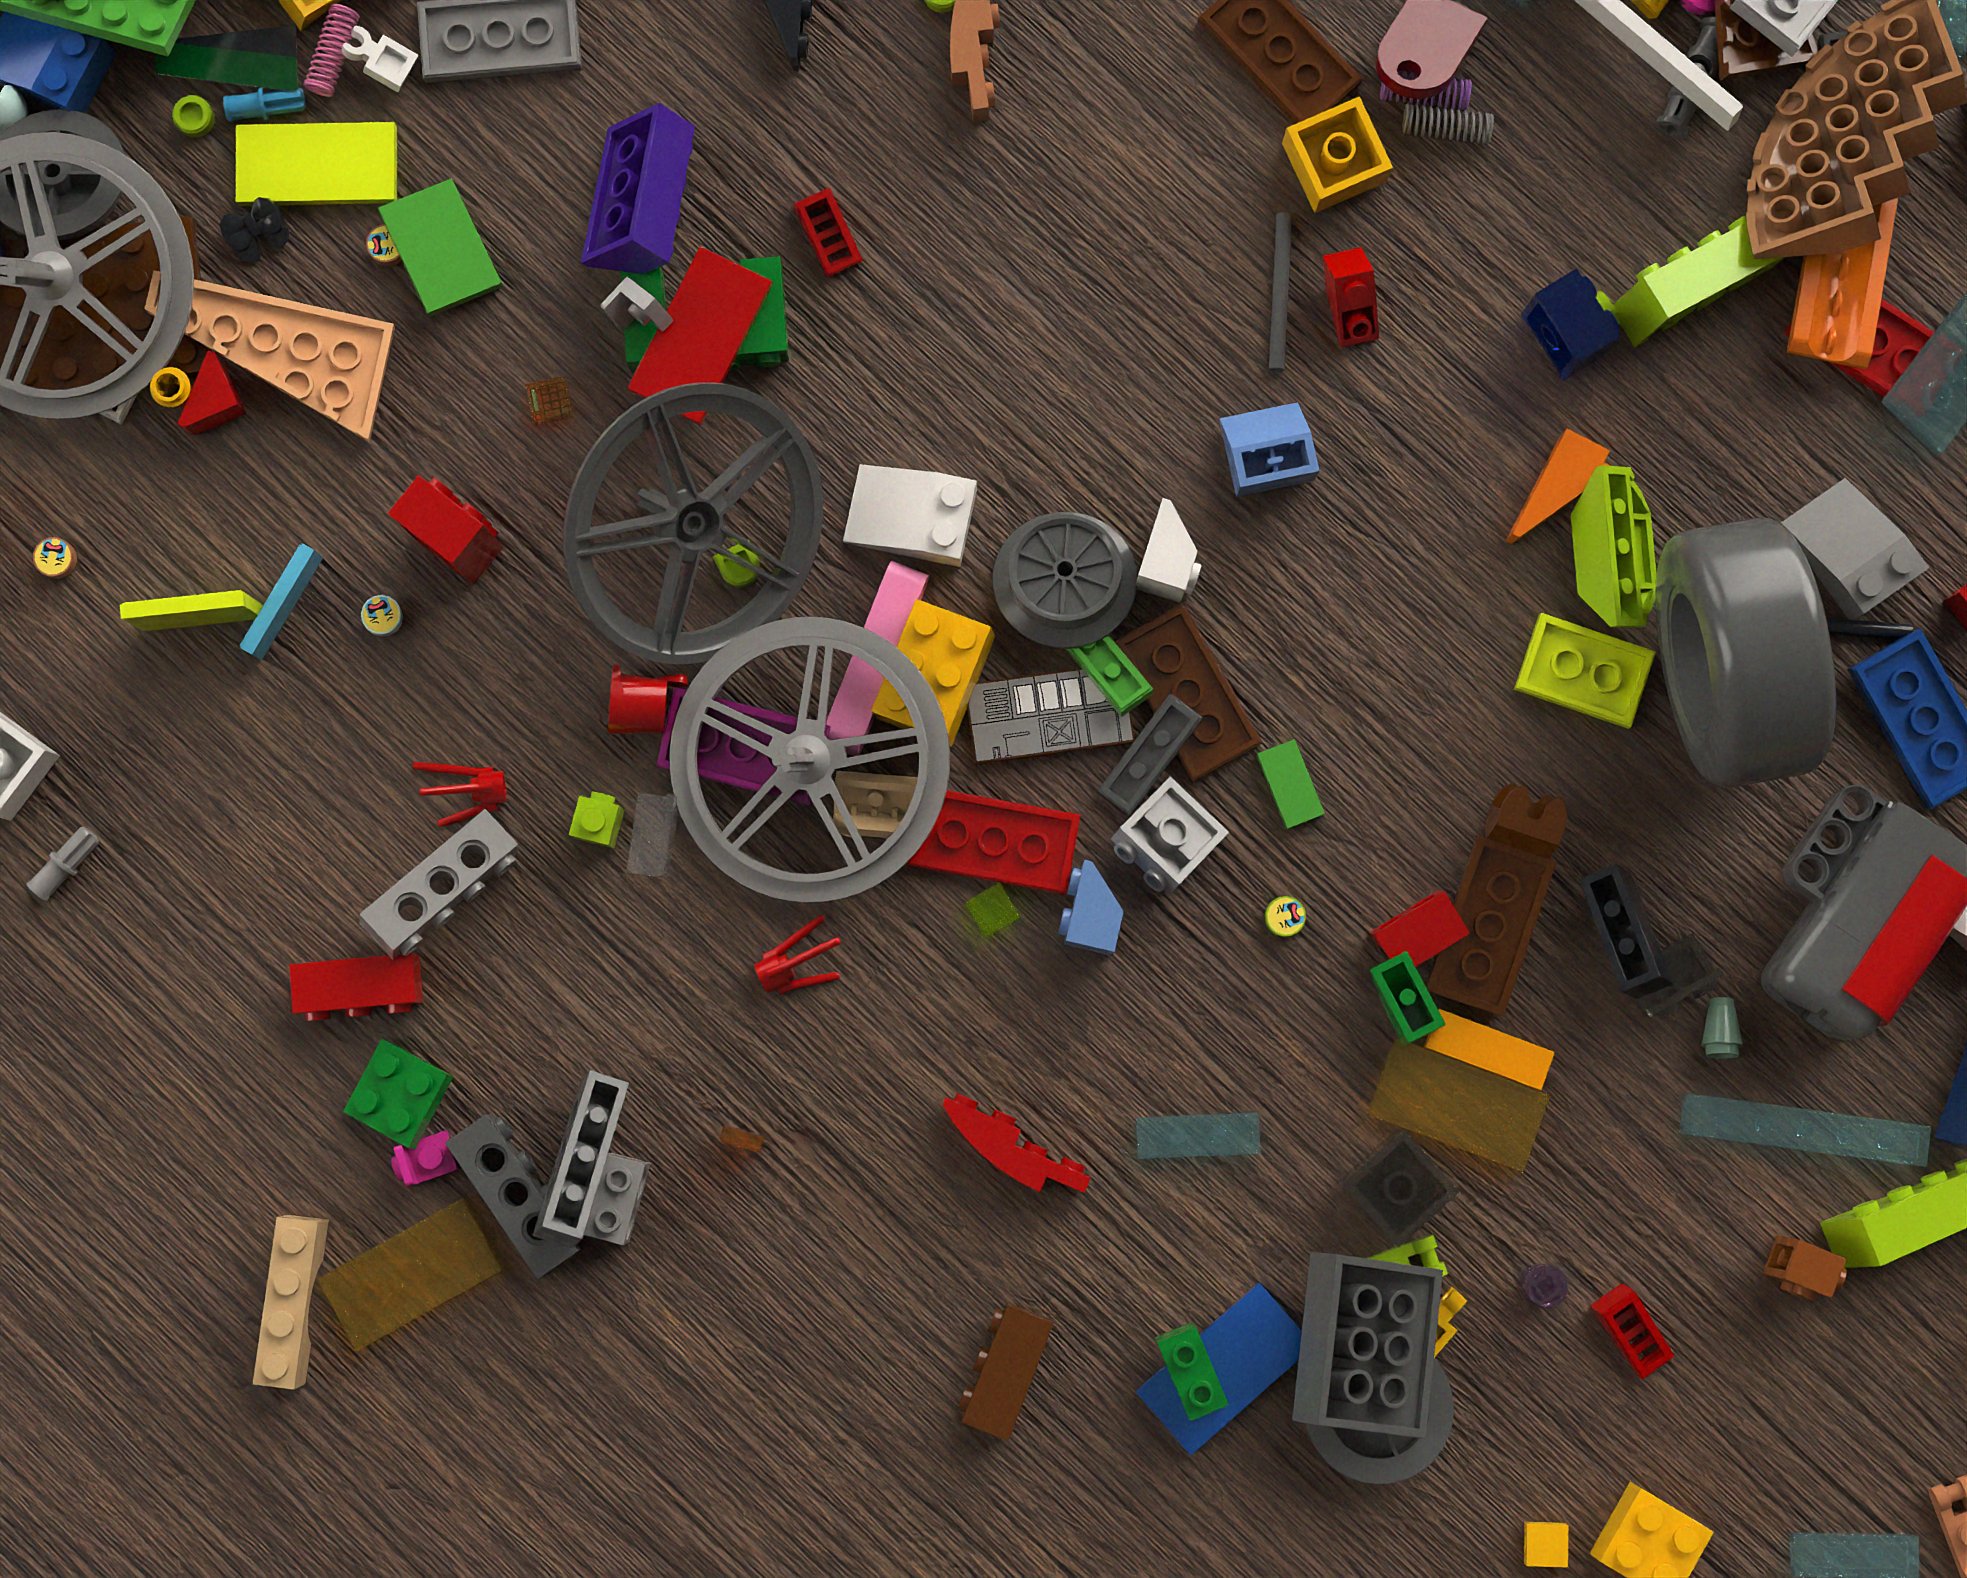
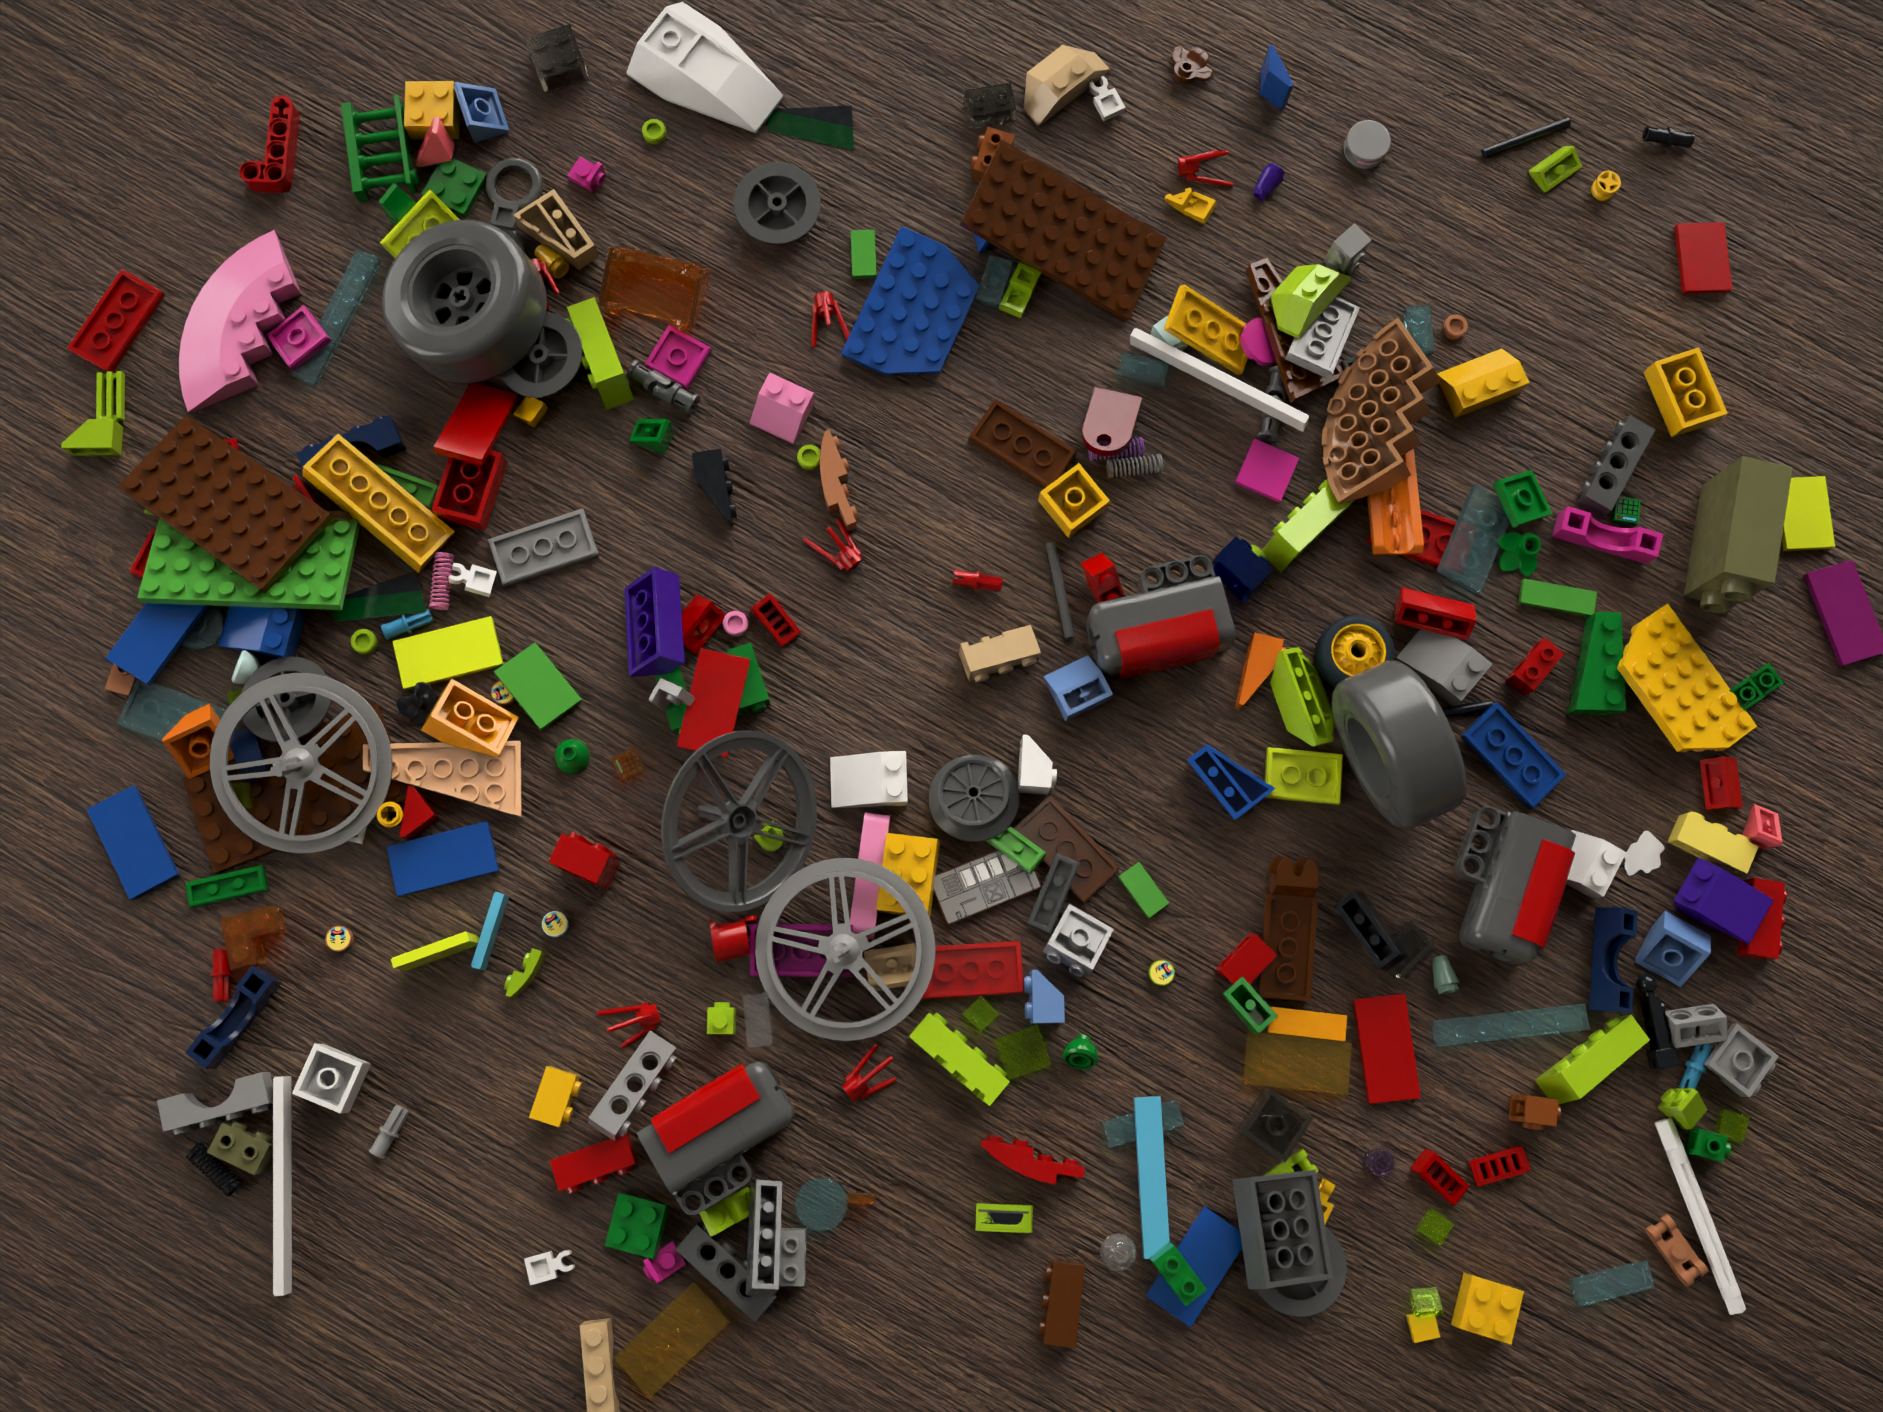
camera: 20 degrees left, 5 degrees down
(236, 475) = (443, 858): none -> blue tile
(247, 1119) = (545, 1266): none -> white plate
(306, 688) = (518, 981): none -> lime slope
(321, 873) = (555, 1097): none -> yellow brick
(323, 274) = (469, 721): none -> light orange slope
(467, 367) = (572, 756): none -> green brick
(535, 1107) = (726, 1212): none -> lime slope
(541, 979) = (711, 1130): none -> dark grey piece
(680, 1132) = (821, 1204): none -> clear light blue tile
(709, 208) = (699, 622): none -> red panel
(765, 223) = (735, 624): none -> bright pink tile
(941, 967) = (959, 1059): none -> lime wedge
(950, 1222) = (1004, 1217): none -> lime slope
(963, 161) = (848, 556): none -> red plant
(1042, 983) = (1022, 1052): none -> clear neon green piece
(1110, 1317) = (1118, 1252): none -> clear brick
(1129, 1006) = (1080, 1053): none -> green brick
(1155, 245) = (978, 580): none -> red axle
(1160, 366) = (999, 653): none -> tan wedge
(1190, 1214) = (1151, 1174): none -> medium azure tile
(1428, 381) = (1164, 623): none -> dark grey piece
(1465, 650) = (1228, 782): none -> blue wedge
(1560, 1510) = (1426, 1302): none -> clear neon green tile
(1602, 1117) = (1386, 1048): none -> red tile
(1604, 1402) = (1434, 1226): none -> clear neon green tile
(1654, 180) = (1266, 470): none -> dark pink tile
(1732, 468) = (1333, 648): none -> wheel
(1764, 1328) = (1520, 1157): none -> red slope
(1860, 468) = (1434, 613): none -> red brick

